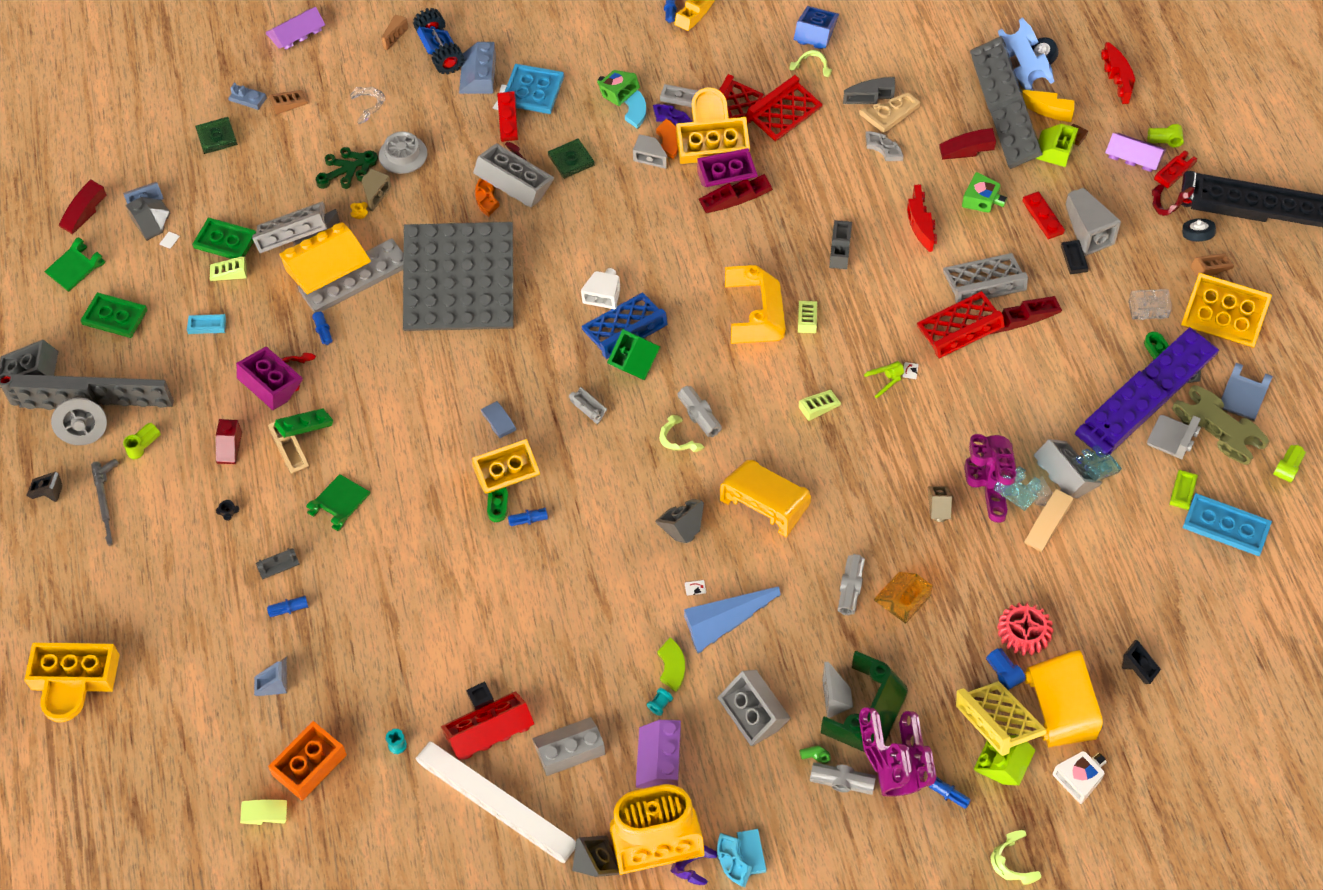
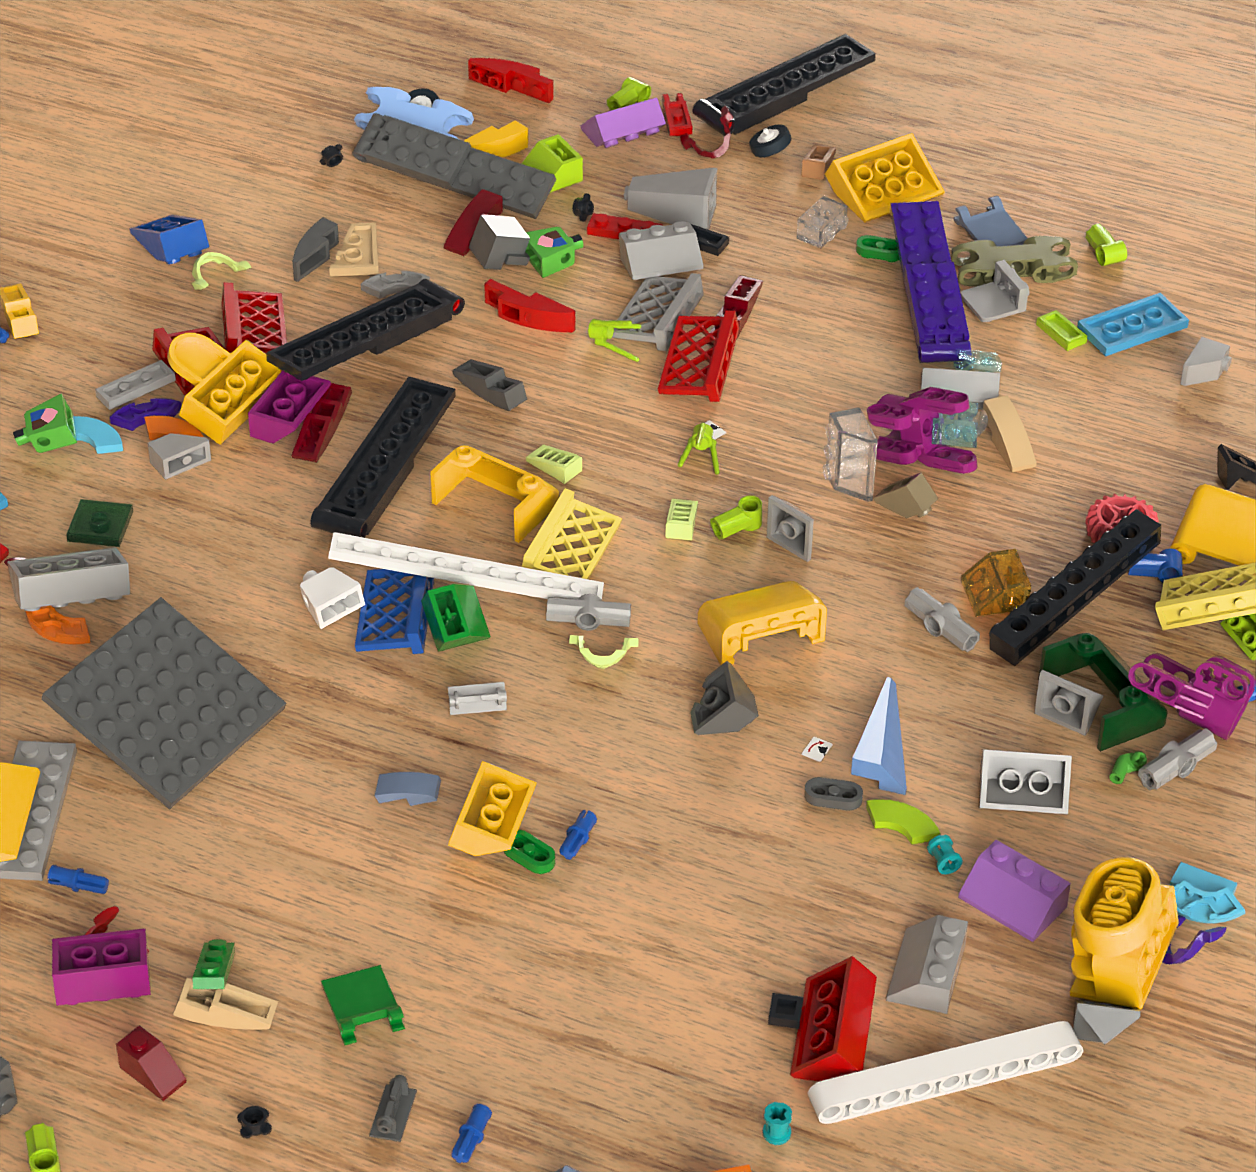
camera: 55 degrees left, 15 degrees down
(661, 619) = (833, 793): none -> dark grey plate
(669, 335) = (460, 568): none -> white plate
(728, 240) = (383, 459): none -> black hinge
(741, 353) = (553, 528): none -> light yellow fence
(819, 162) = (371, 329): none -> black hinge
(840, 432) = (743, 517): none -> lime piece
(856, 460) = (790, 527): none -> light grey slope
(935, 449) = (850, 454): none -> clear slope
(937, 265) = (603, 330): none -> lime plant
(942, 644) = (1074, 587): none -> black brick
(958, 43) = (331, 155): none -> black plate
(960, 167) = (499, 241): none -> dark grey plate
(1033, 245) = (660, 250): none -> light grey slope
(1038, 179) = (583, 207): none -> black plate
(1228, 586) = (1206, 362): none -> light grey slope

